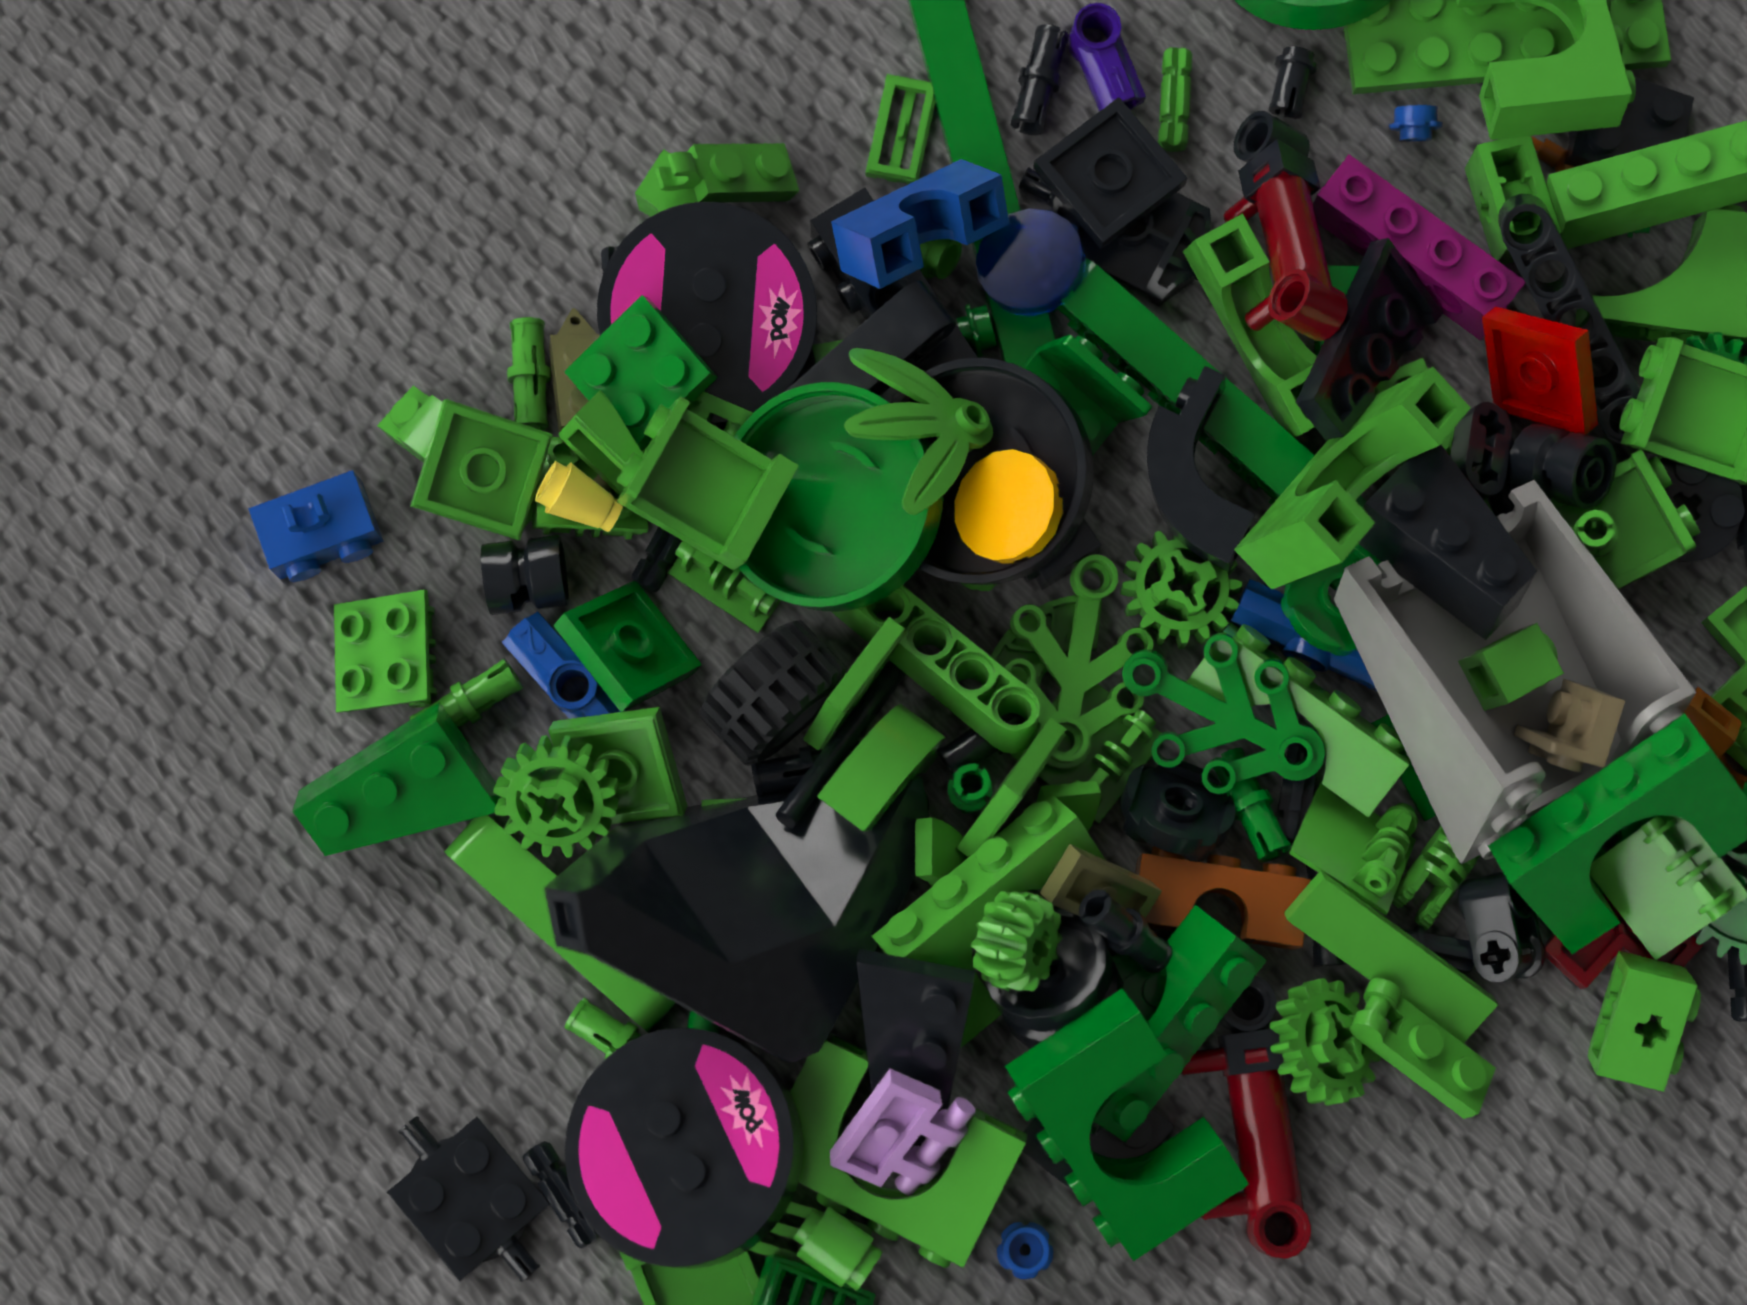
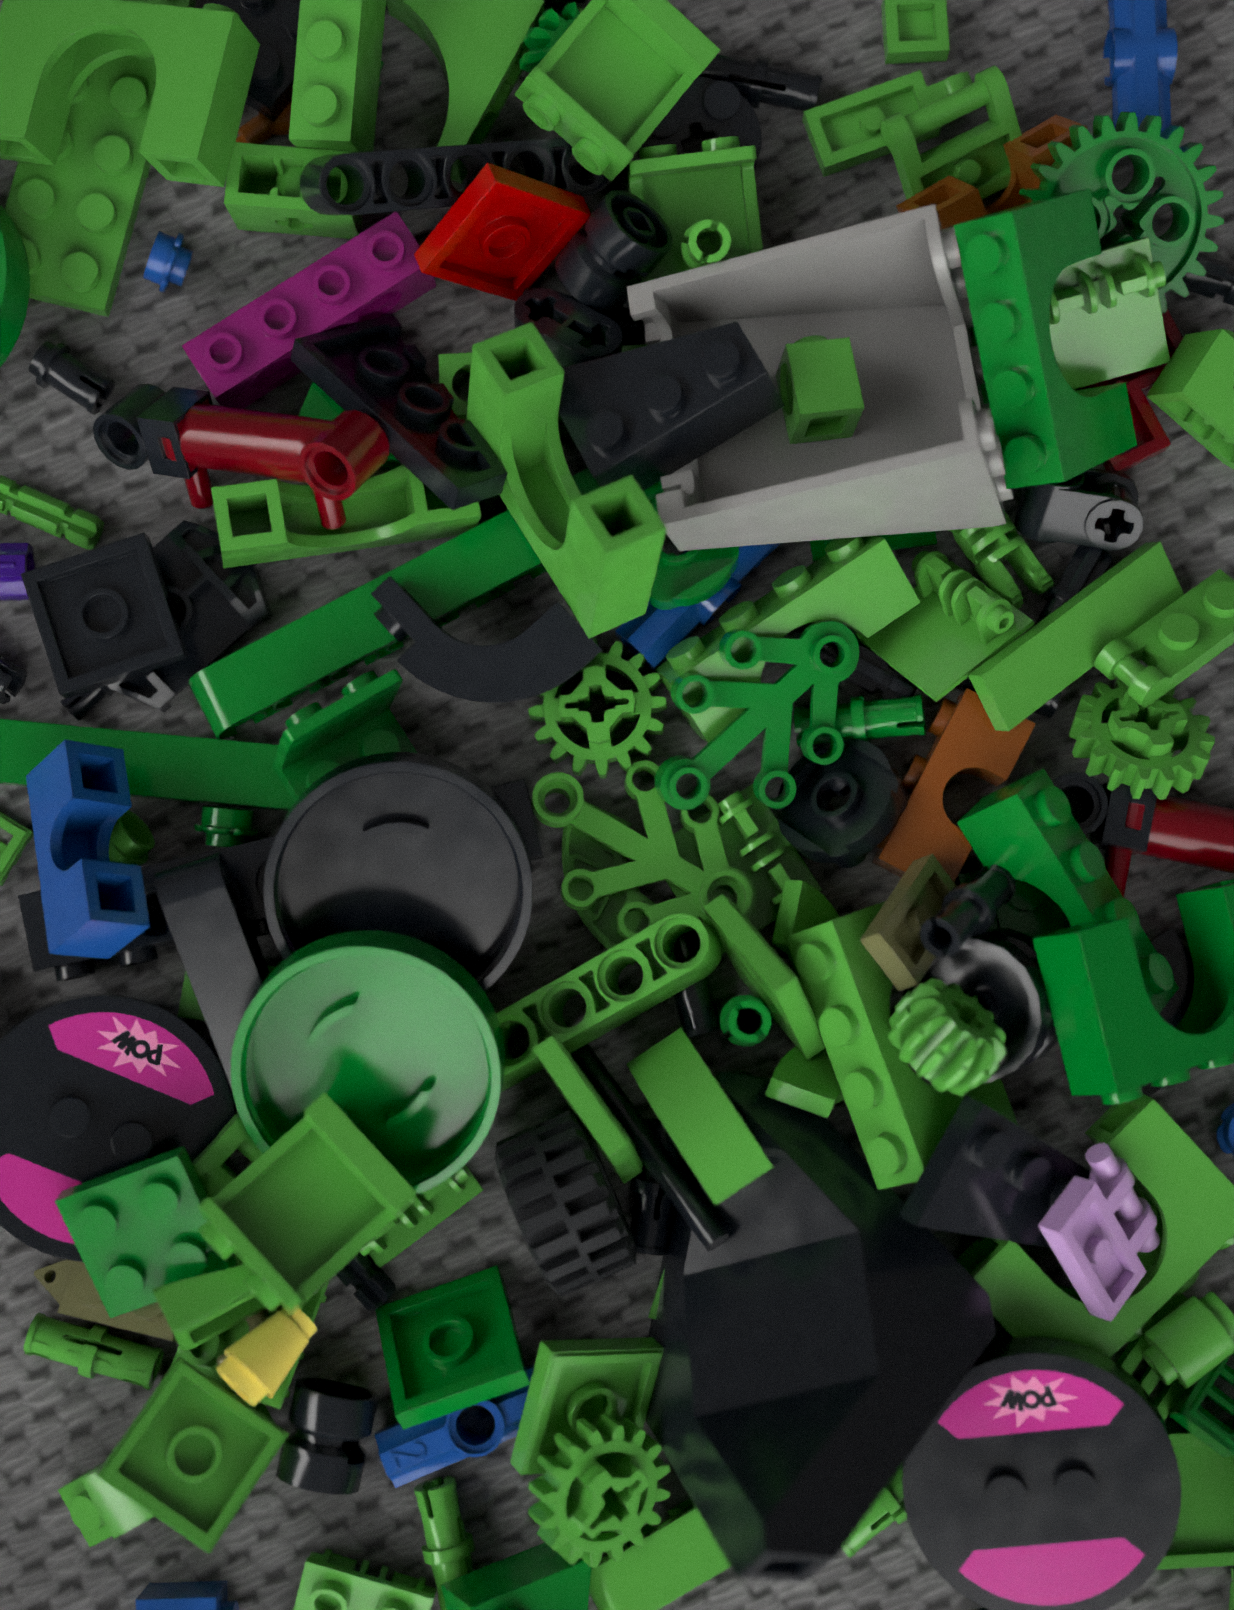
camera: 70 degrees left, 5 degrees up
(955, 422) = (336, 897): bright green plant -> none
(1008, 506) = (454, 870): yellow tile -> none
(1031, 262) = (175, 739): clear blue tile -> none
(1579, 727) = (915, 345): dark tan bracket -> none

